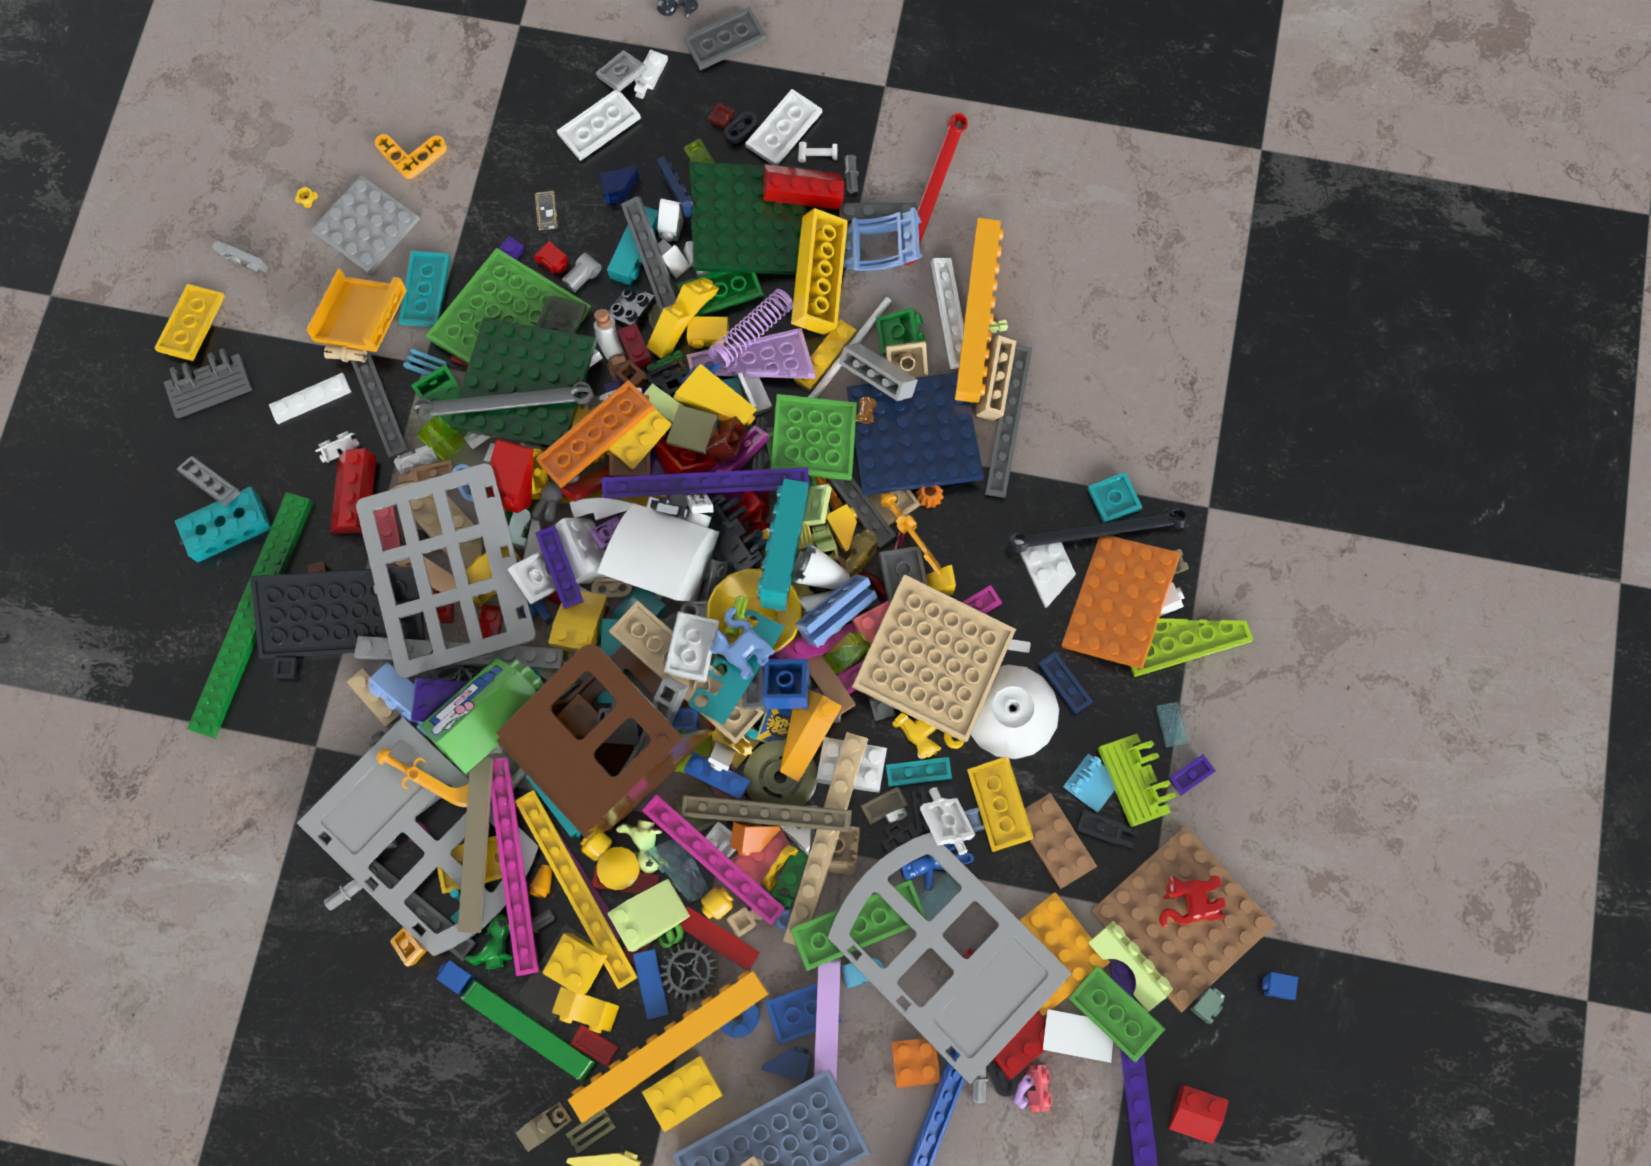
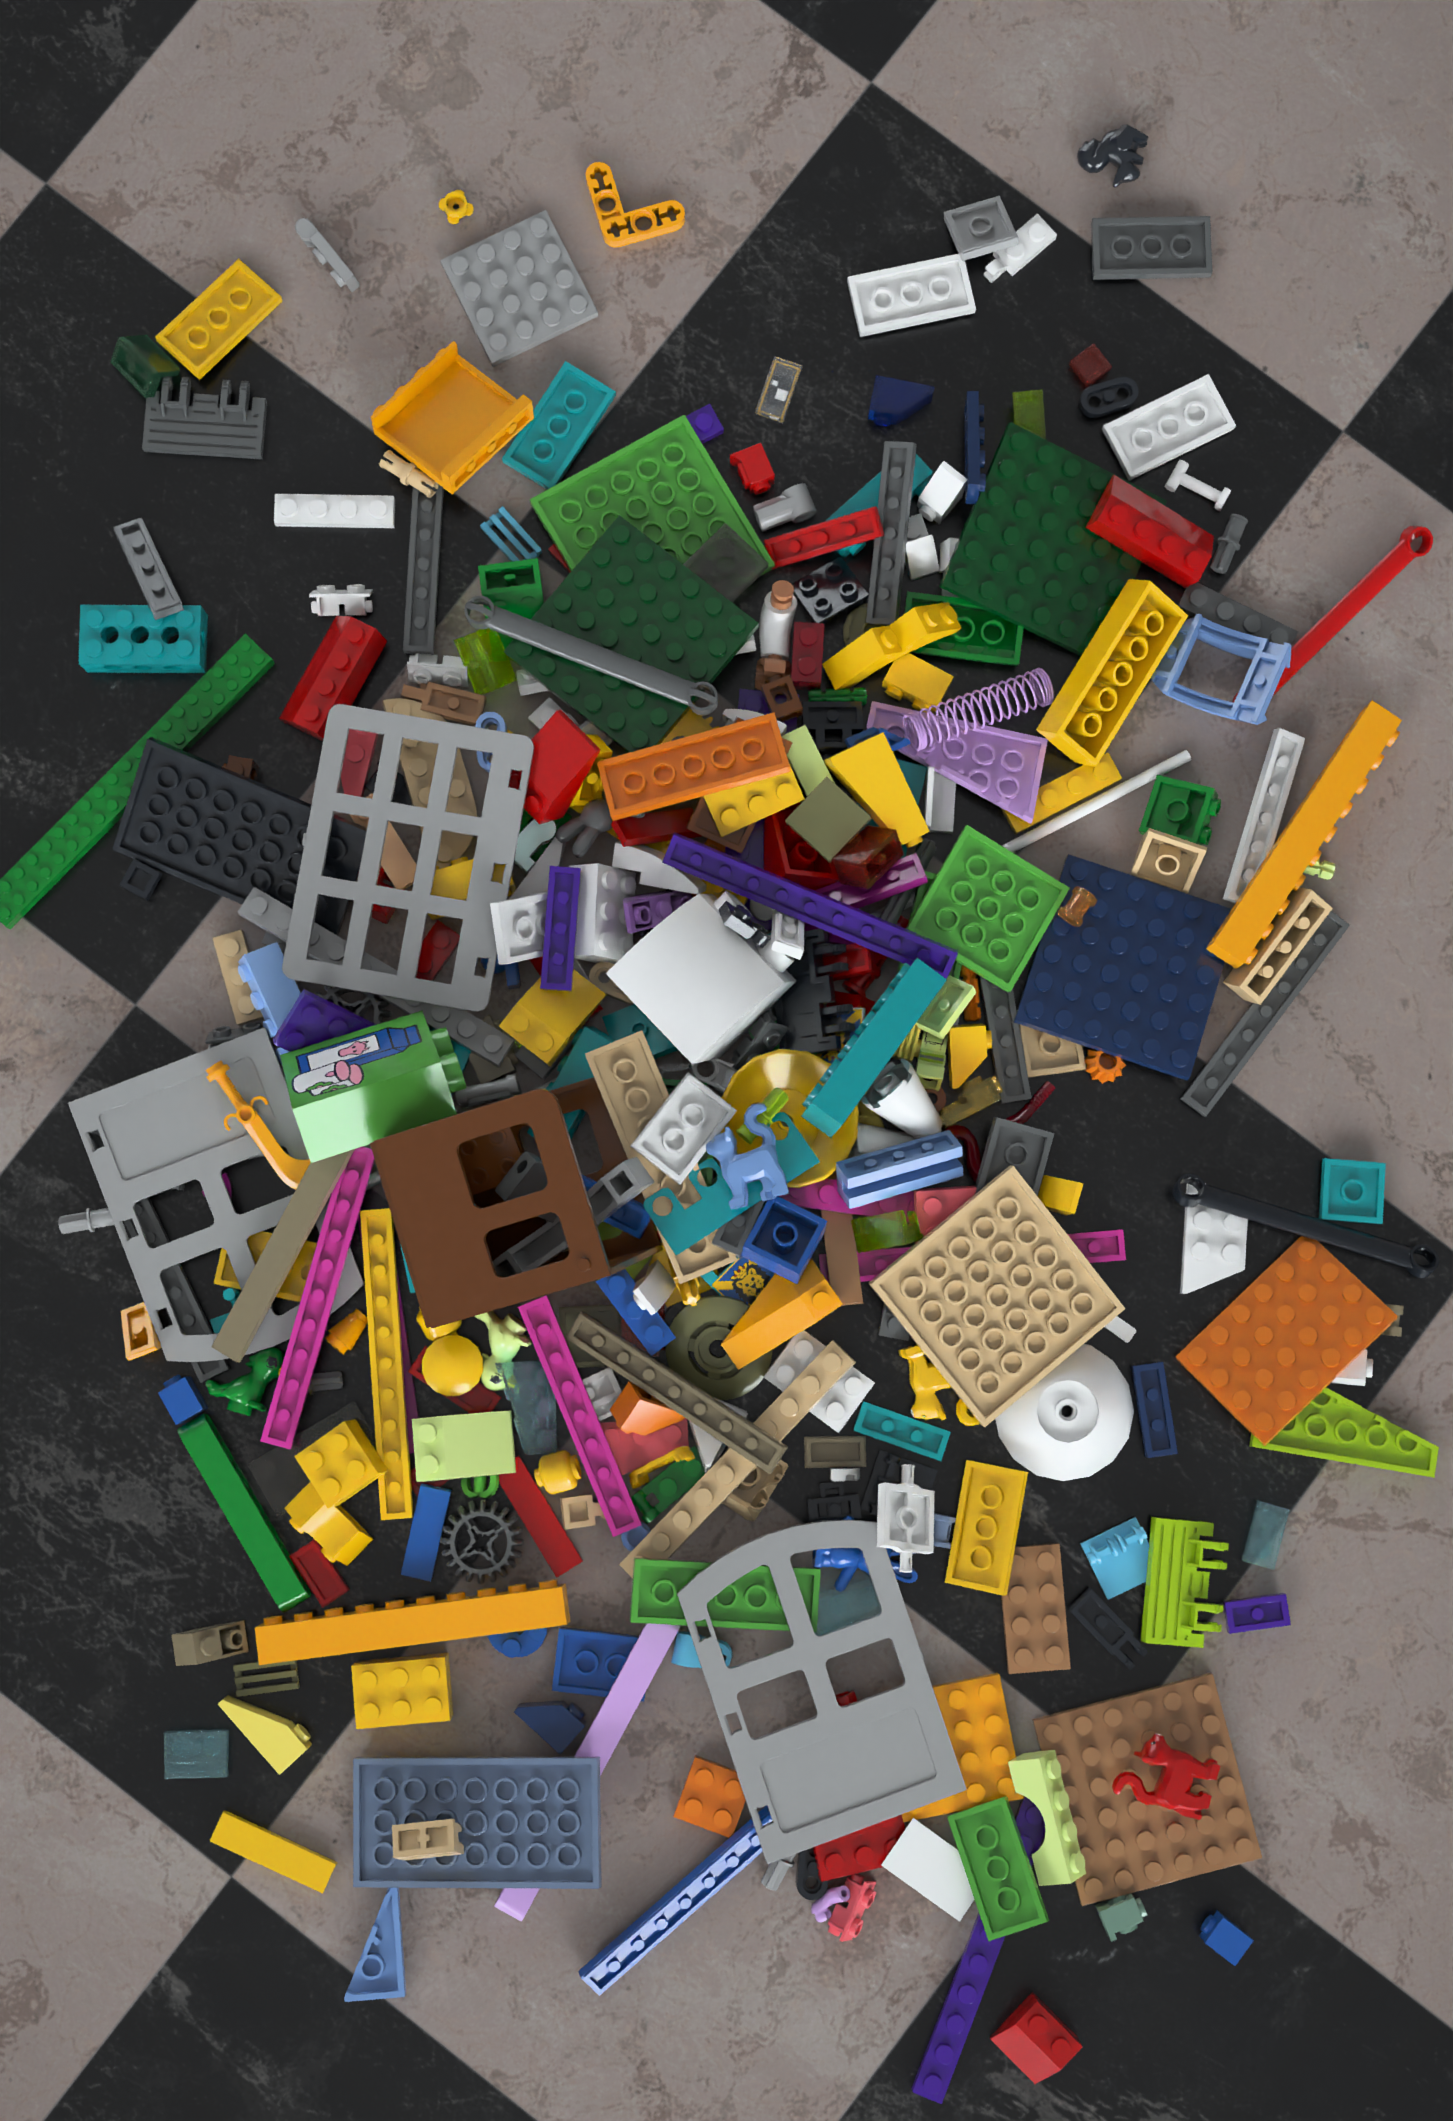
camera: 20 degrees right, 10 degrees up
(153, 367) = (142, 363): none -> clear green panel
(612, 275) = (825, 537): none -> red tile
(878, 371) = (1120, 859): light grey brick -> none
(907, 523) = (1052, 1092): light orange sword -> none

